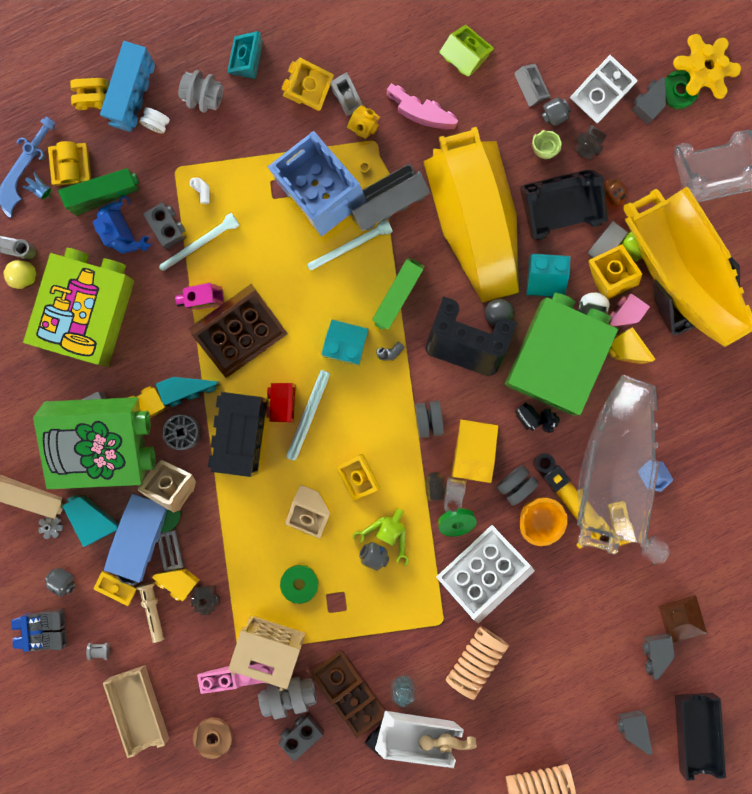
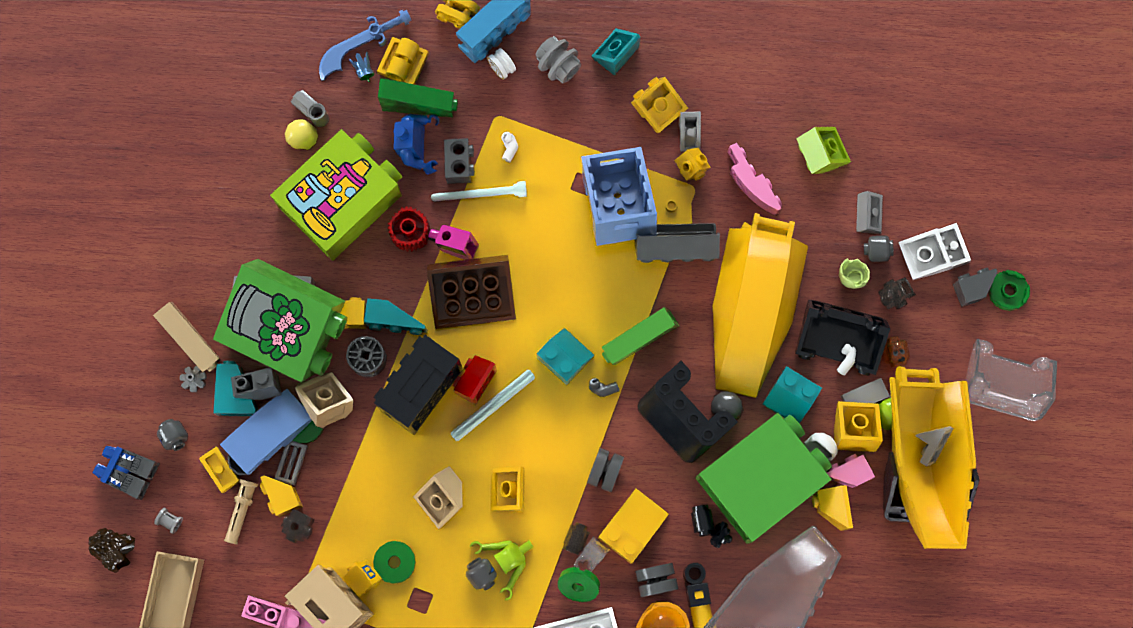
camera: 25 degrees right, 10 degrees down
(65, 699) = (111, 548): none -> dark brown hair
(105, 505) = (256, 385): none -> dark grey slope
(146, 305) = (409, 218): none -> red brick
(280, 611) = (361, 577): none -> yellow brick
(382, 228) = (657, 269): light aqua piece -> none
(579, 220) = (849, 360): none -> white arm
(684, 250) = (935, 442): none -> light grey slope
(699, 74) = (1035, 288): yellow plate -> none

